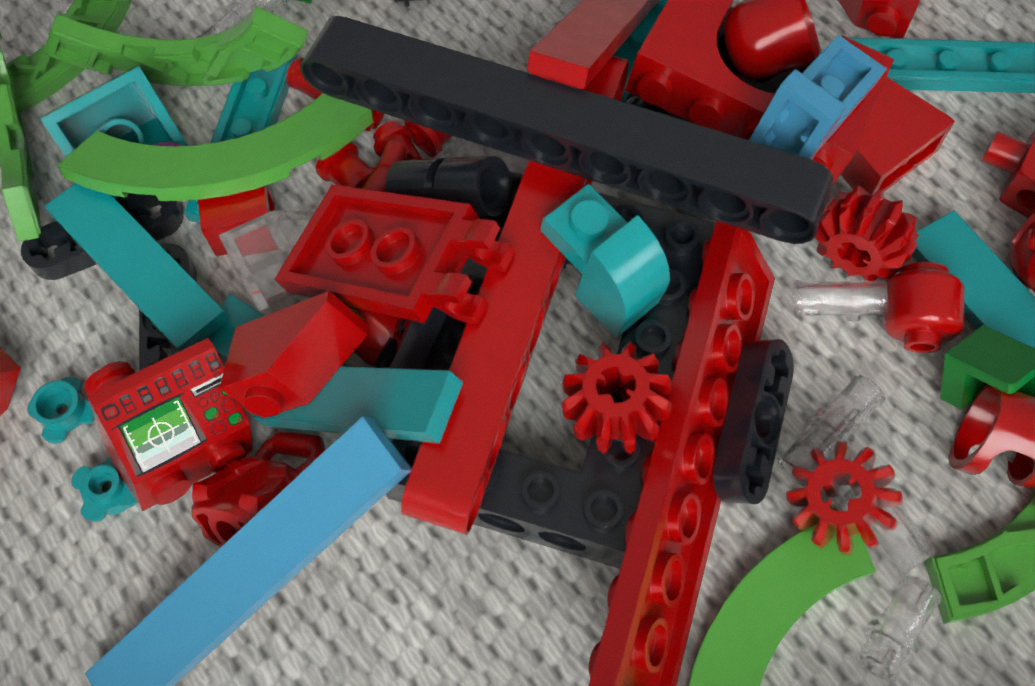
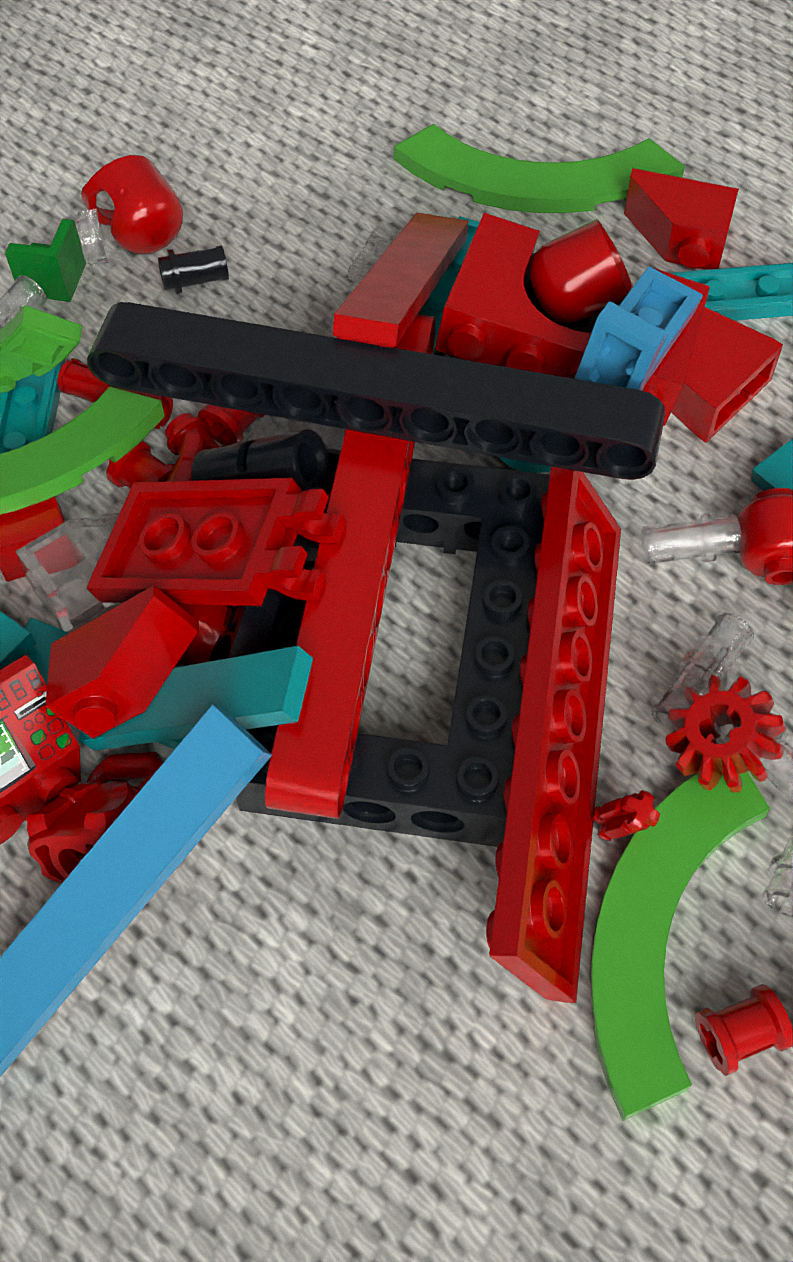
camera: 10 degrees left, 5 degrees down
(617, 258) = (457, 518): teal brick -> none
(638, 387) = (499, 664): red gear -> none
(738, 560) = (625, 815): none -> red piece
(753, 422) = (620, 675): black beam -> none
(866, 234) = (708, 469): red gear -> none

